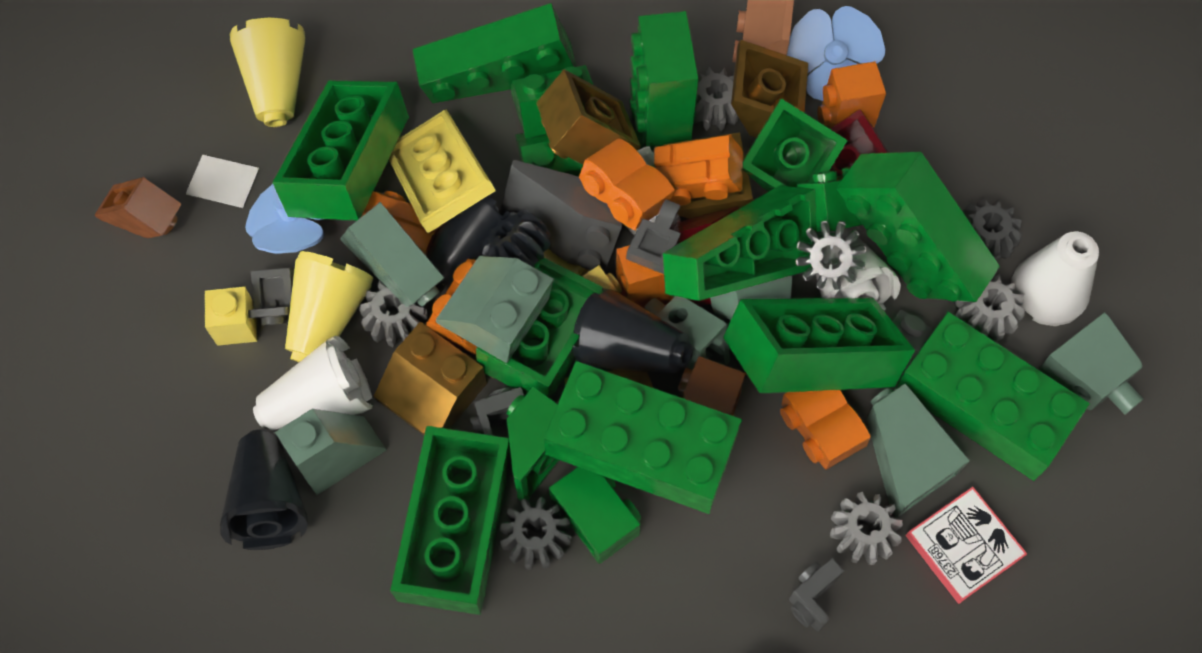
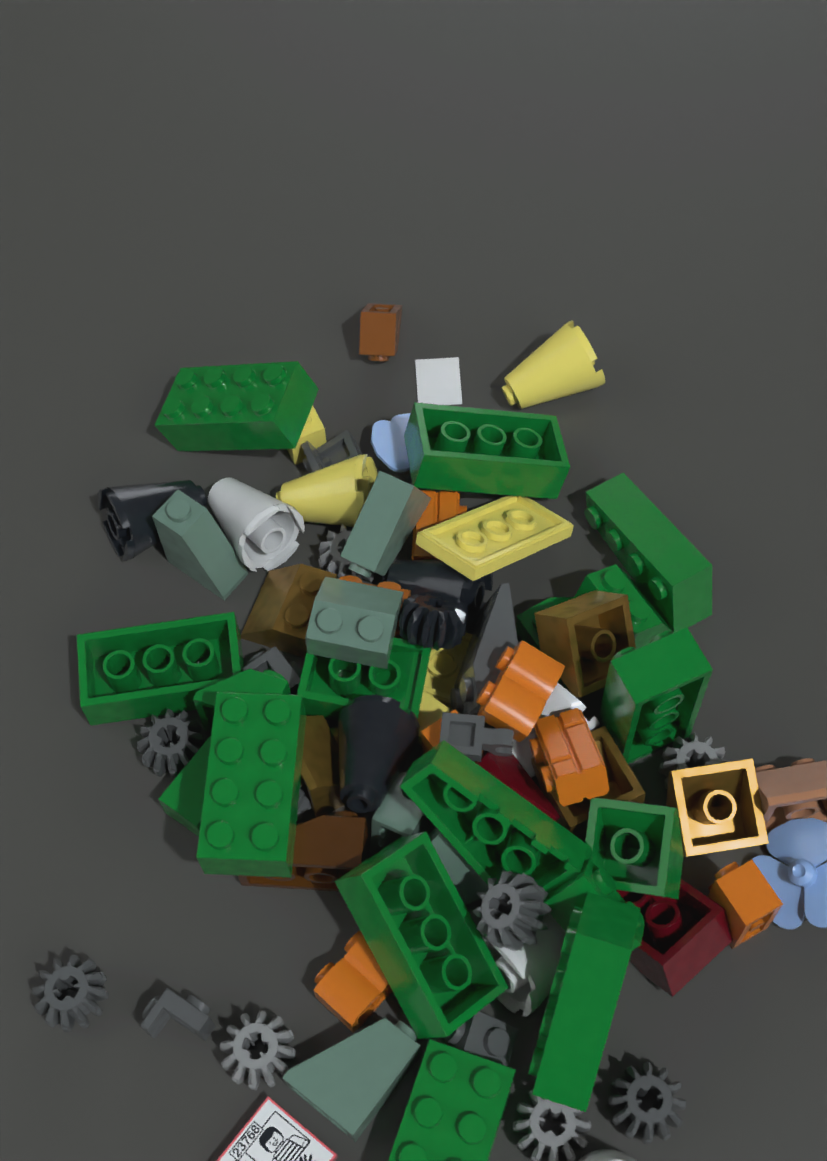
camera: 75 degrees right, 5 degrees down
(179, 363) = (237, 407): none -> green brick

